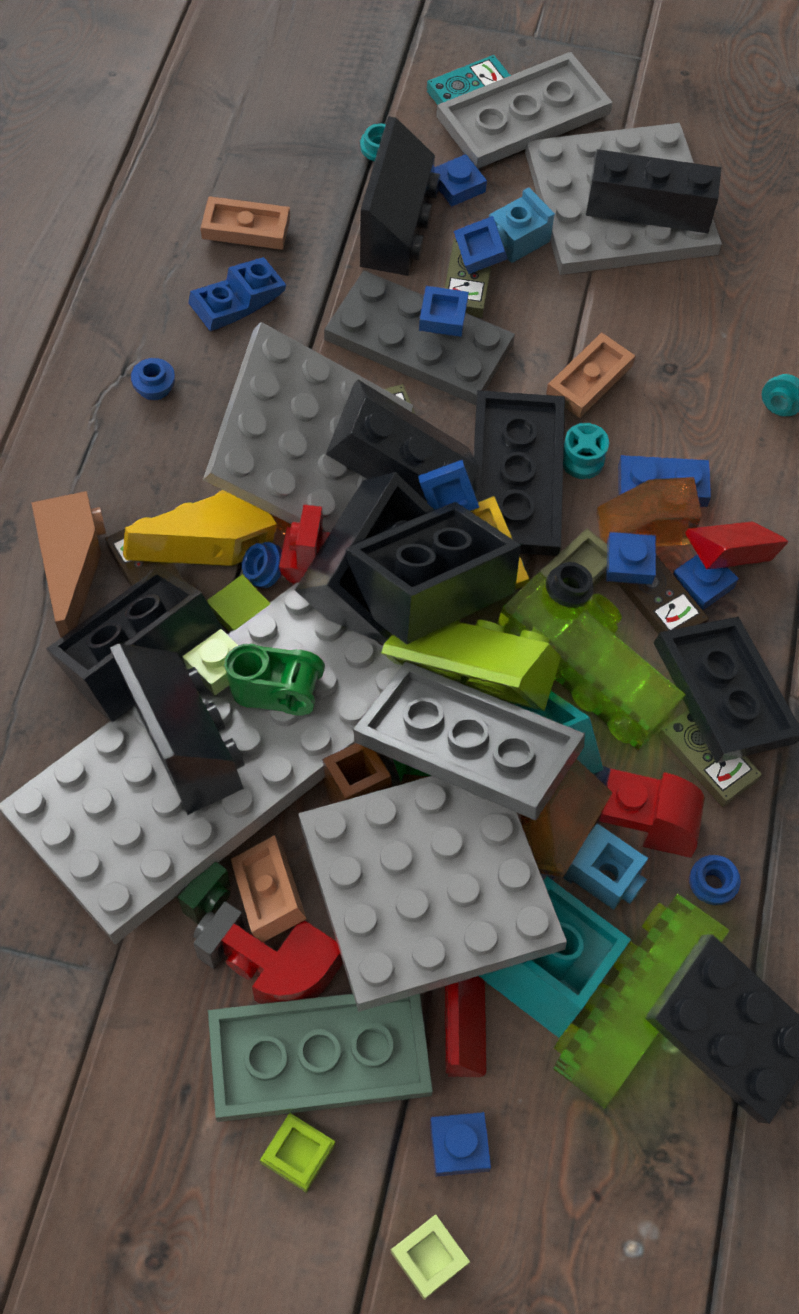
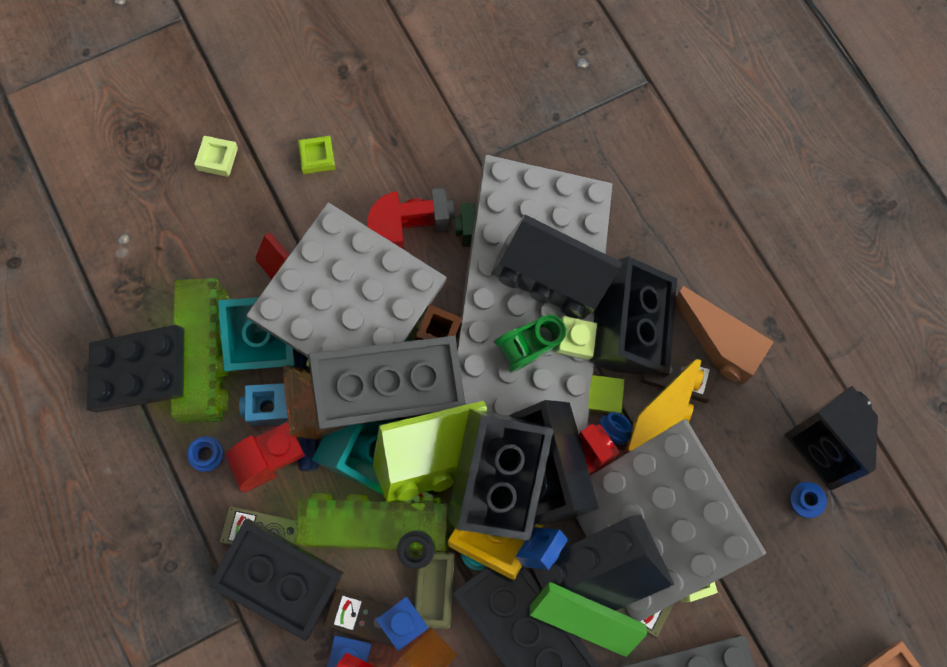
camera: 140 degrees right, 10 degrees up
(77, 372) = (839, 438): none -> black slope
(242, 293) = (826, 615): blue slope -> none
(268, 889) = (435, 246): nougat plate -> none
(316, 1056) = (349, 183): sand green plate -> none
(456, 428) = (587, 619): none -> bright green tile
(460, 1144) = (242, 216): blue plate -> none
(604, 612) = (390, 568): clear neon green plate -> none

